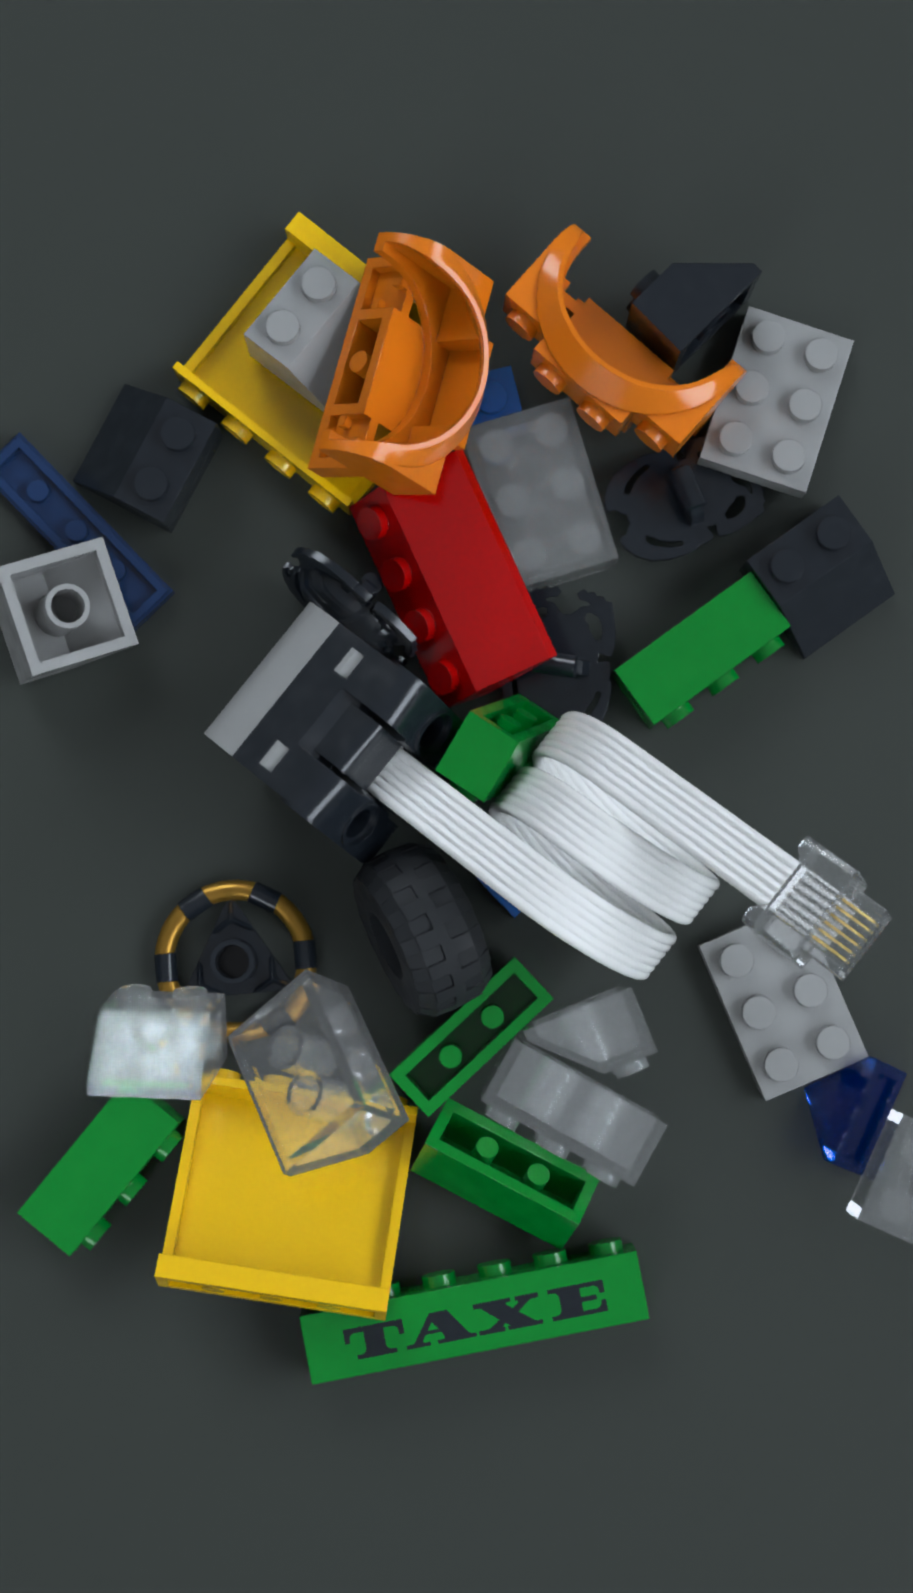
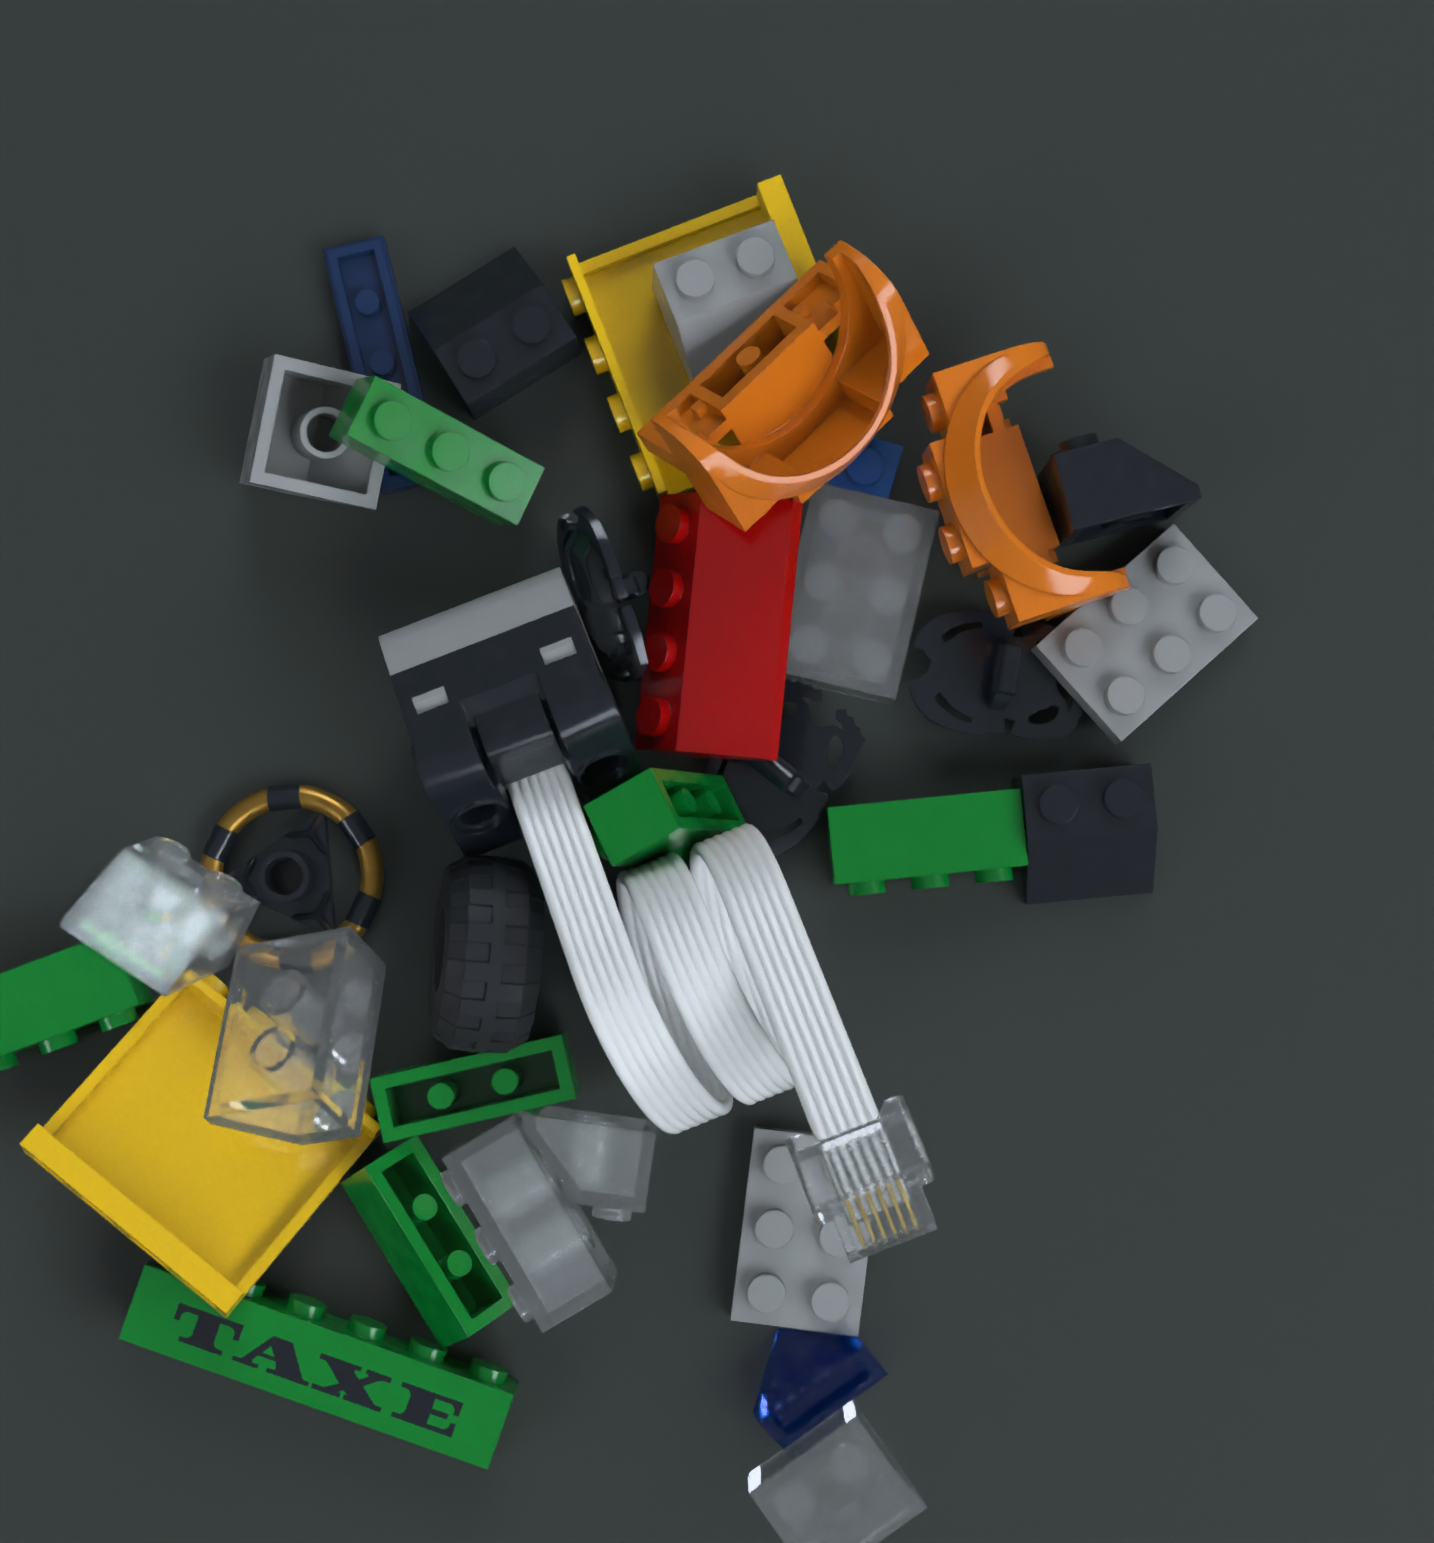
camera: 35 degrees right, 0 degrees up
(160, 571) = (436, 451): none -> green brick

